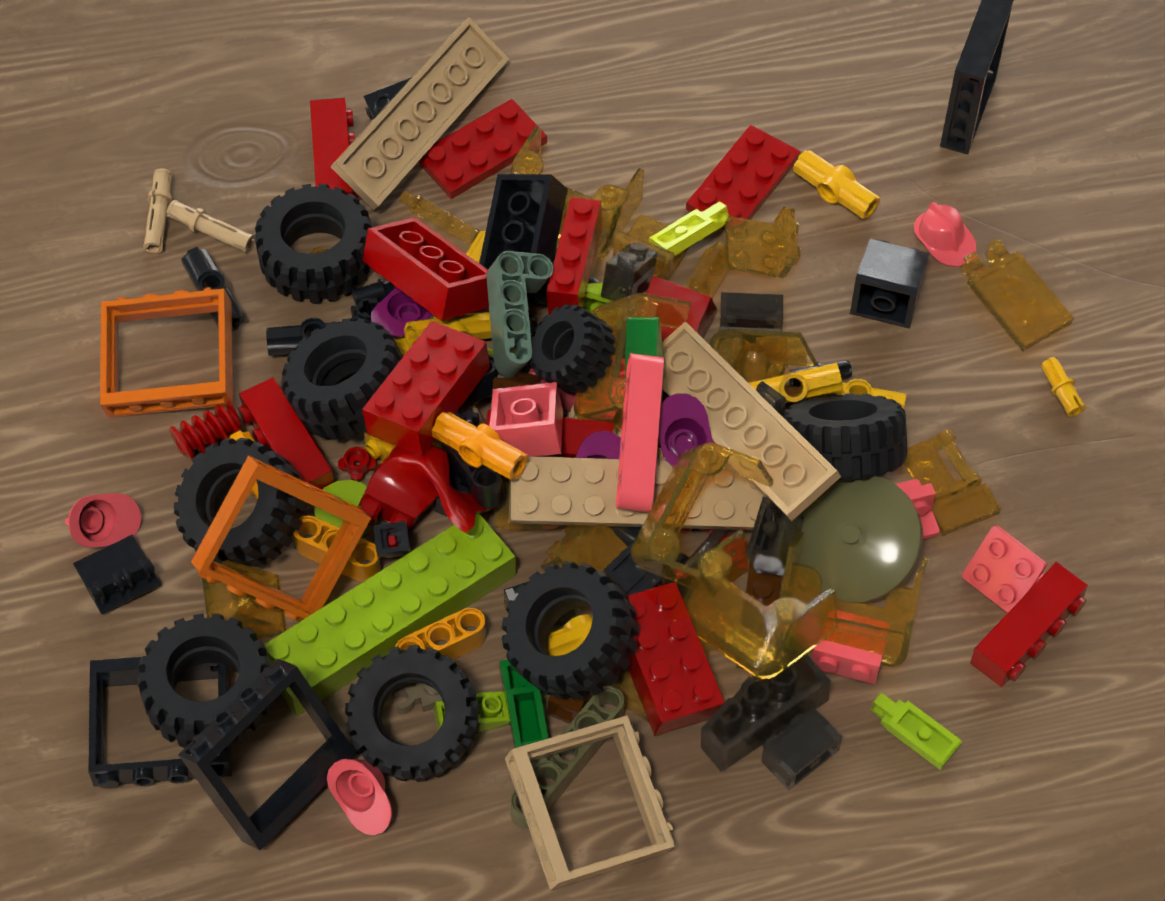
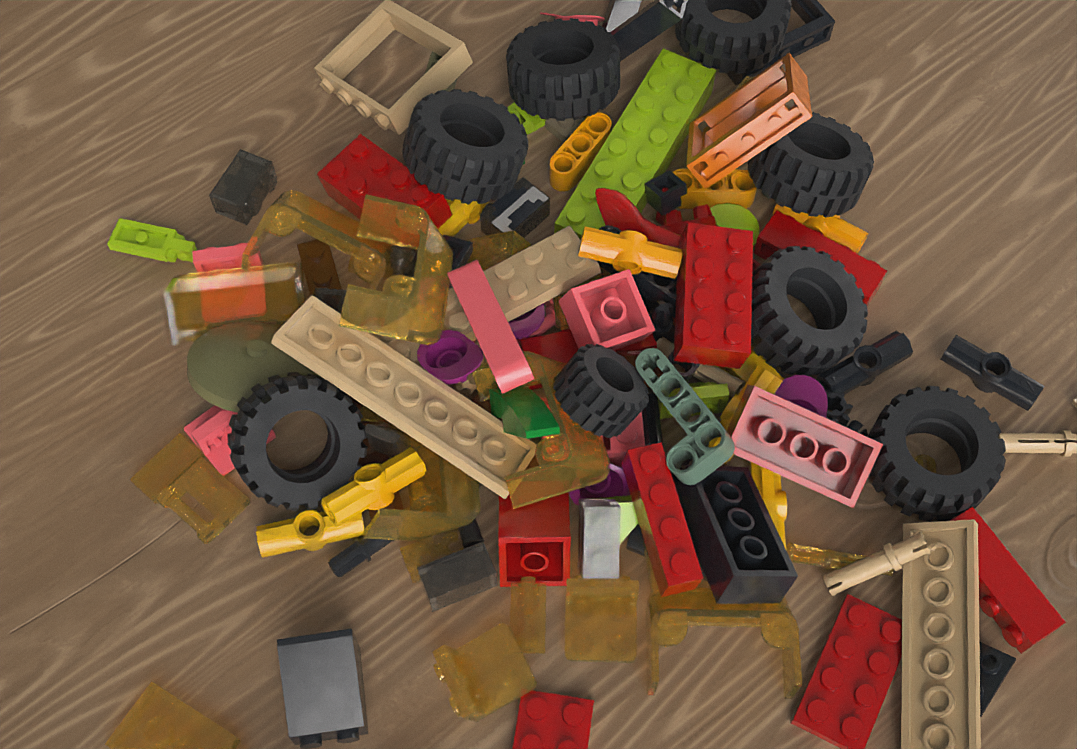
camera: 155 degrees right, 5 degrees up
(103, 519) = (917, 129): coral piece -> none
(117, 574) = (871, 106): black hinge -> none
(172, 397) = (1010, 247): orange window -> none
(206, 430) = (891, 235): red piece -> none
(408, 185) = (877, 563): none -> tan pin
(691, 228) = (569, 646): neon yellow hinge -> none
(762, 710) = (293, 171): clear smoke wedge -> none
(1003, 569) = (105, 412): coral bracket -> none
(1029, 624) = (71, 371): red brick -> none
(1063, 387) = (97, 646): yellow axle -> none

